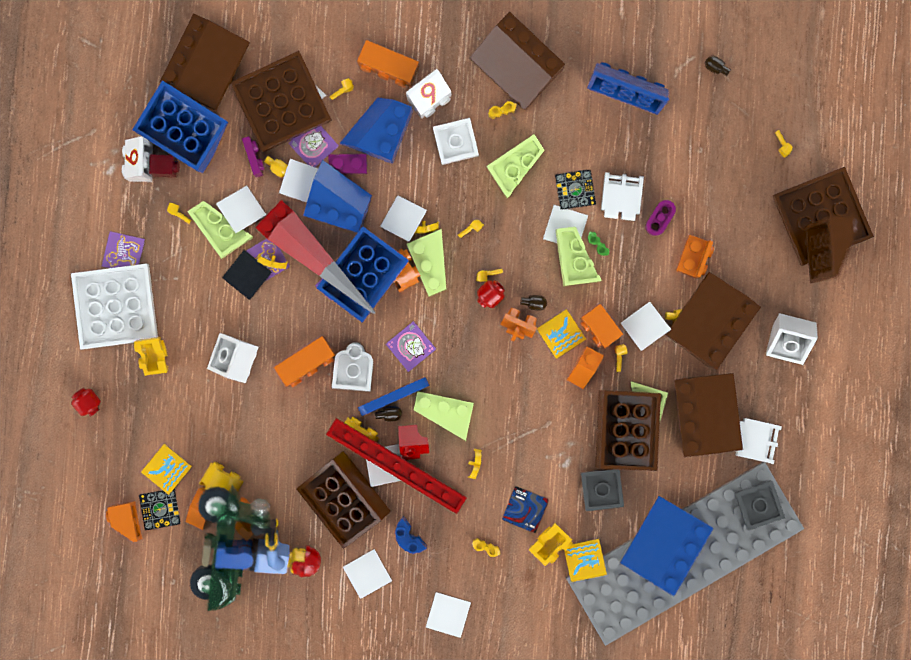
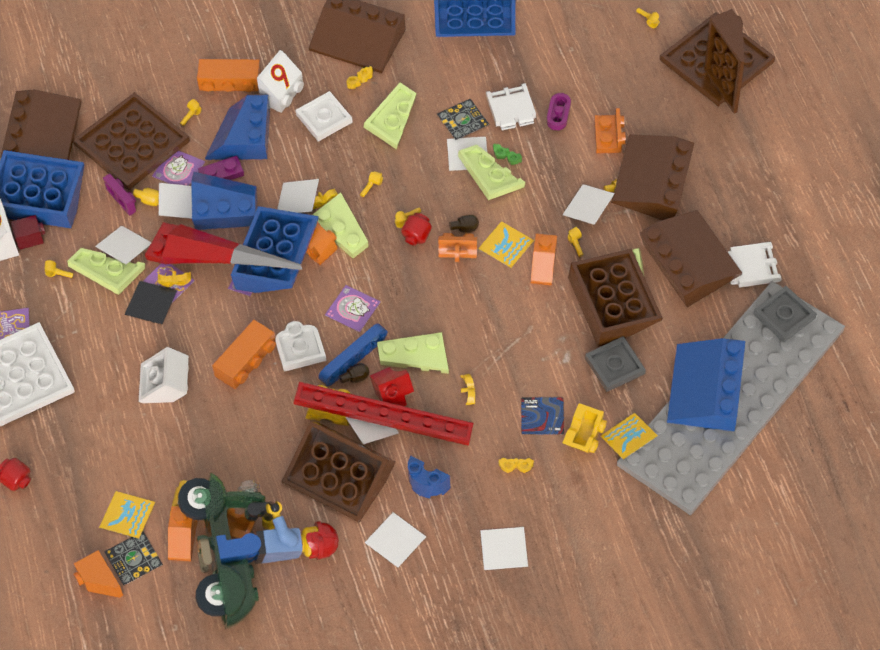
camera: 20 degrees left, 30 degrees down
(152, 355) = (73, 401): yellow cylinder -> none
(600, 326) = (543, 218): orange brick -> none
(791, 339) = (741, 166): white slope -> none

